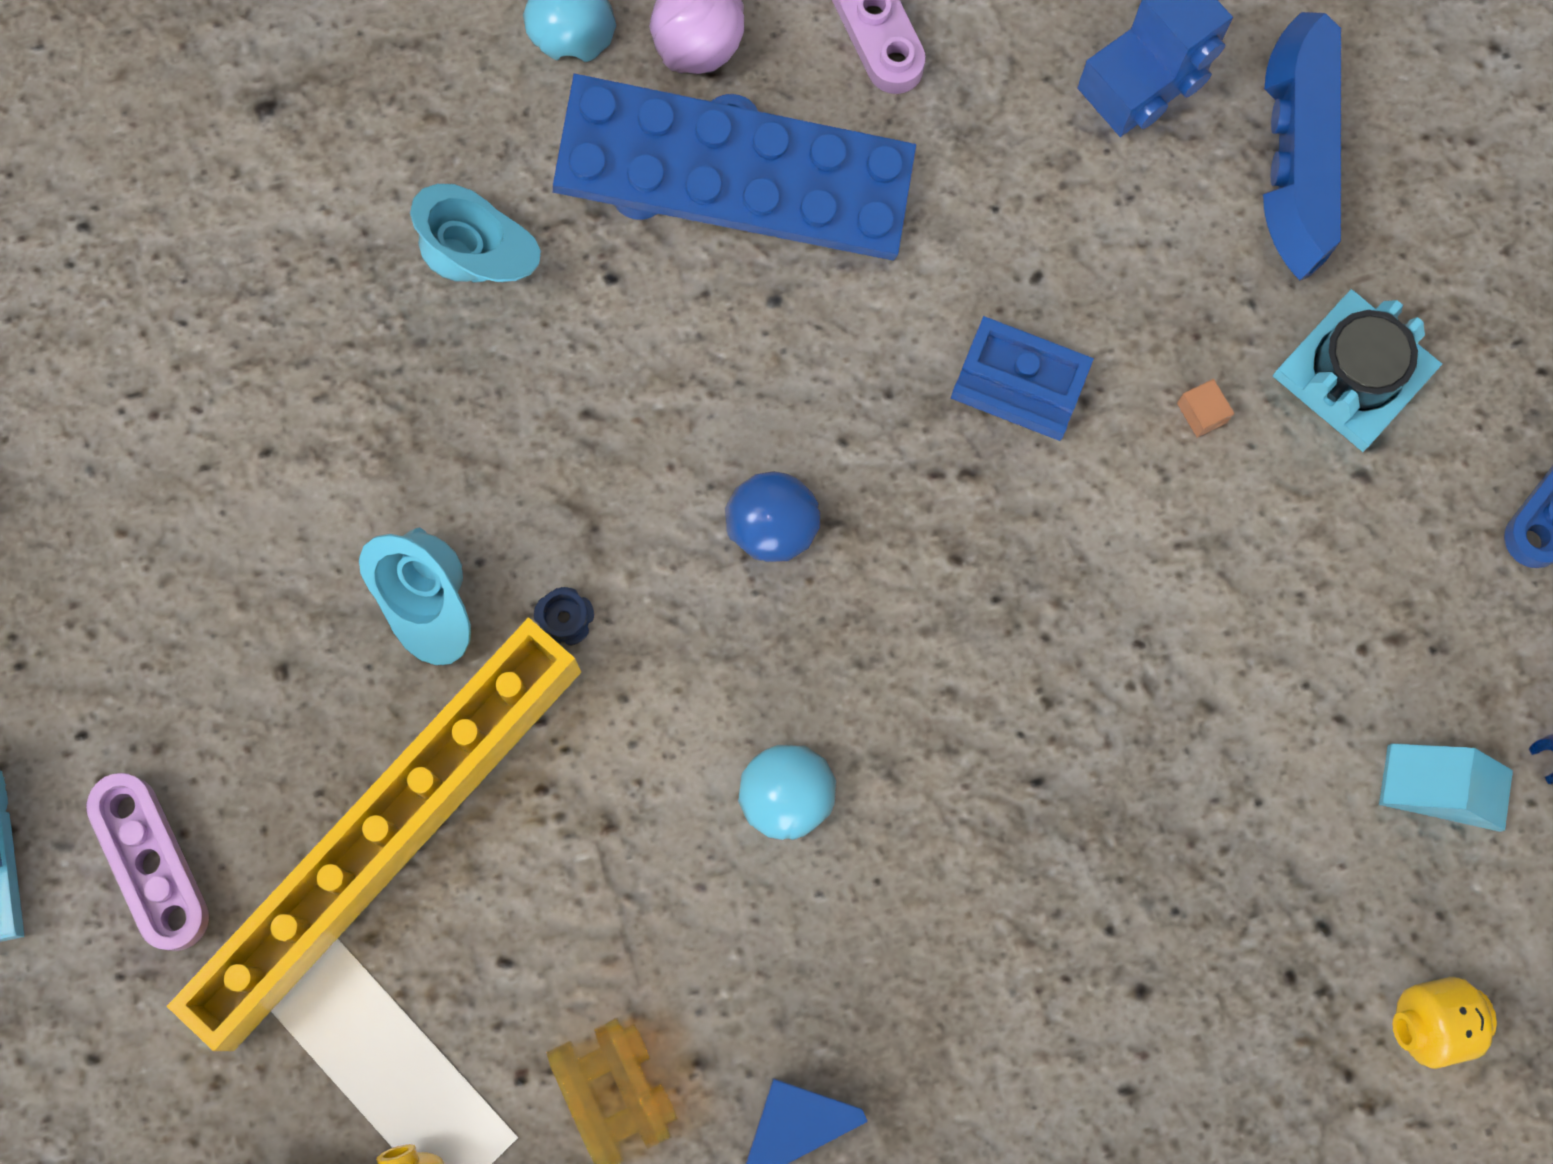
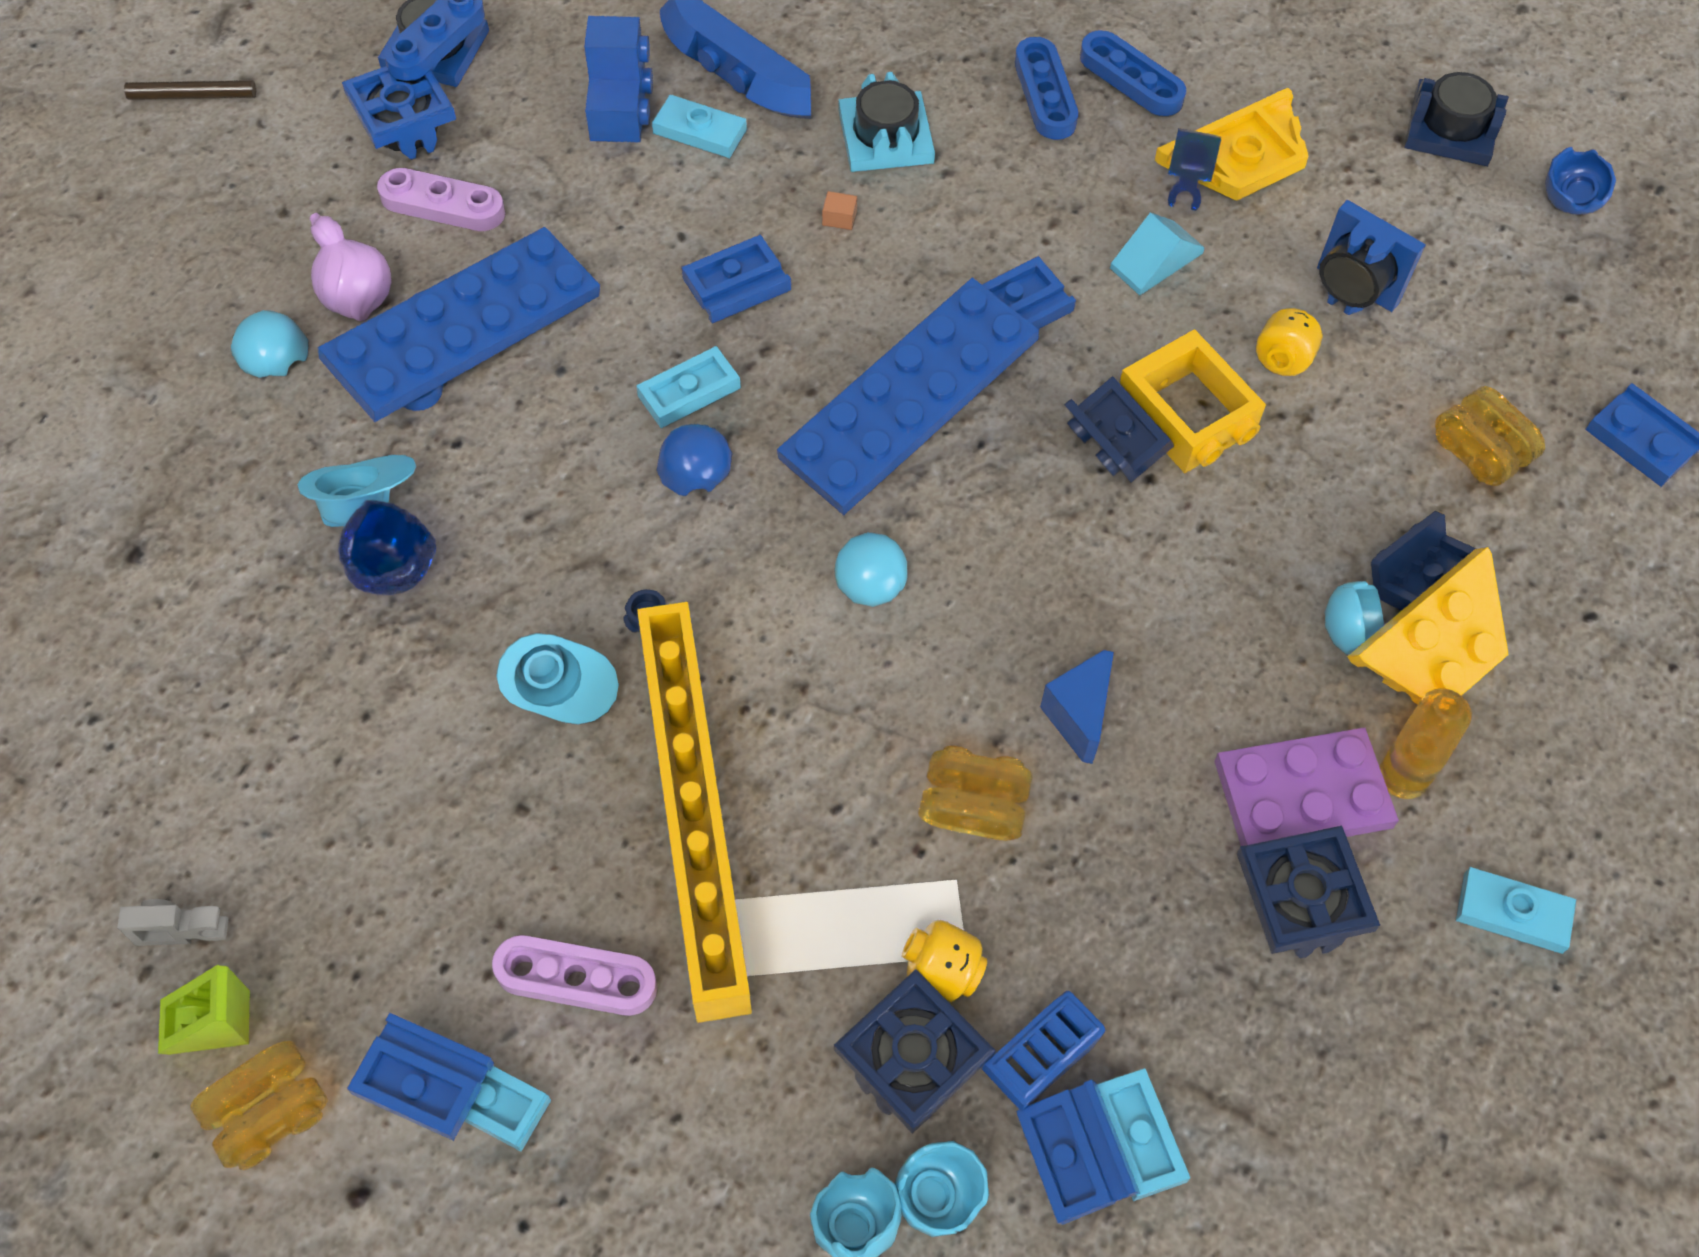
camera: 50 degrees left, 15 degrees down
(433, 316) = (387, 541): none -> clear blue piece
(849, 441) = (688, 387): none -> medium azure plate
(1028, 667) = (907, 395): none -> blue plate
(1162, 917) = (1120, 428): none -> dark blue bracket
(1189, 179) = (699, 126): none -> medium azure plate
(1246, 688) = (1033, 292): none -> blue plate
(1333, 921) = (1170, 364): none -> yellow window

